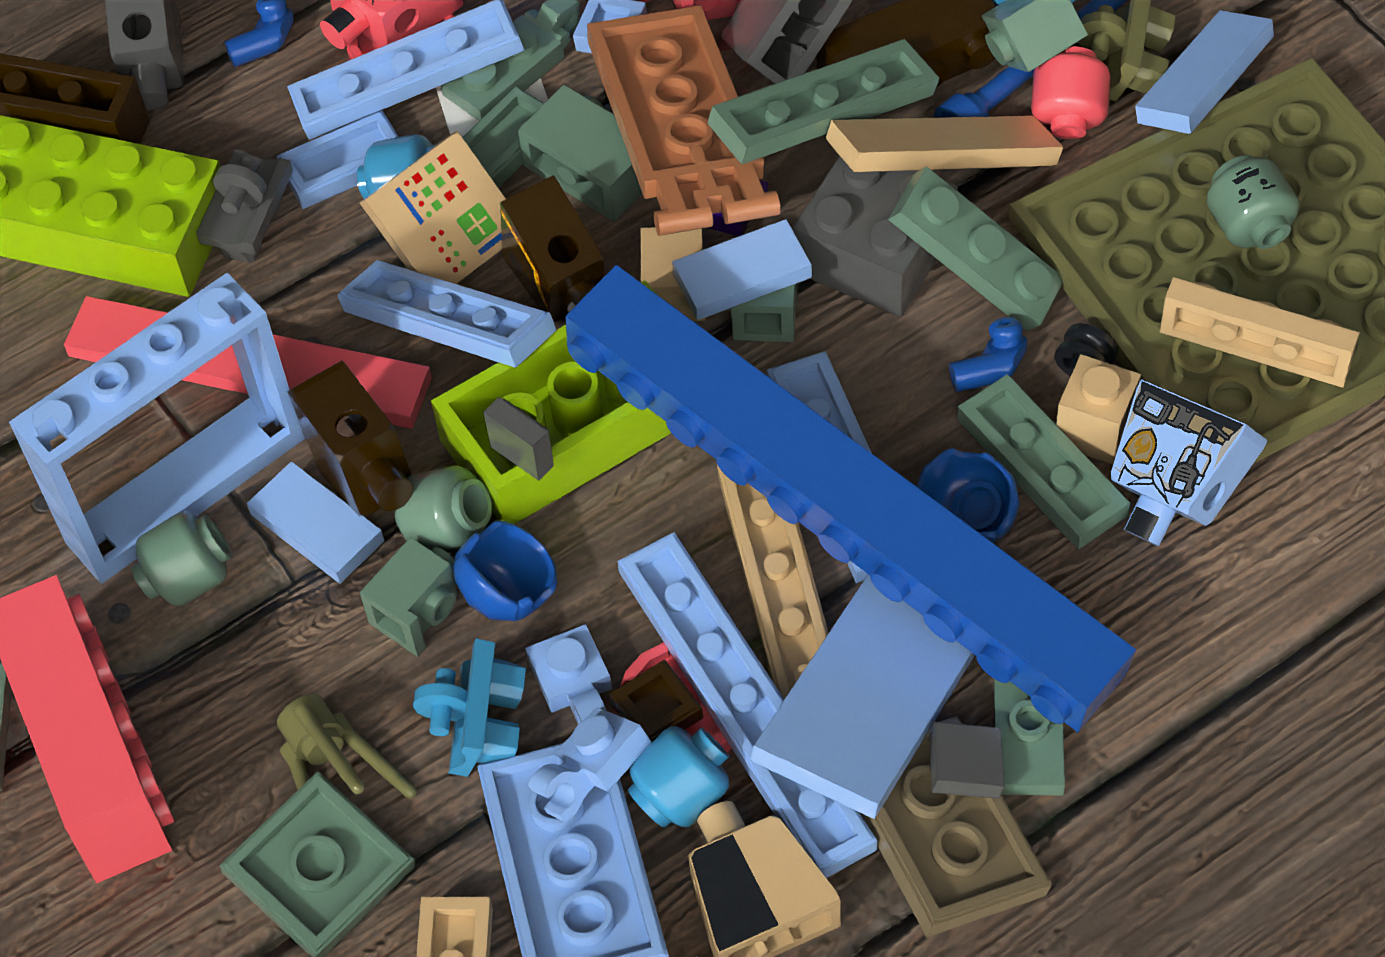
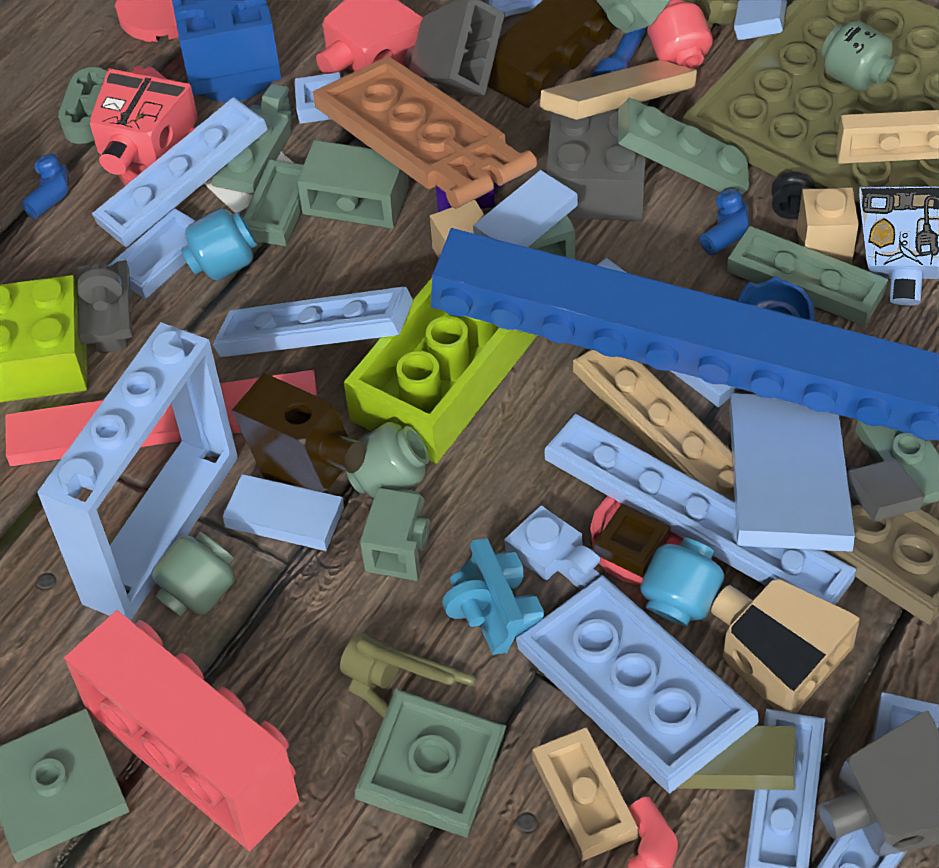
camera: 25 degrees left, 5 degrees down
(440, 212) = (268, 255): tan tile -> none
(504, 572) = (461, 490): blue hair -> none
(519, 438) = (436, 378): dark grey tile -> none
(549, 247) = (369, 251): dark brown torso -> none
(592, 756) = (612, 587): light blue plate -> none
(806, 104) = (518, 85): sand green plate -> none

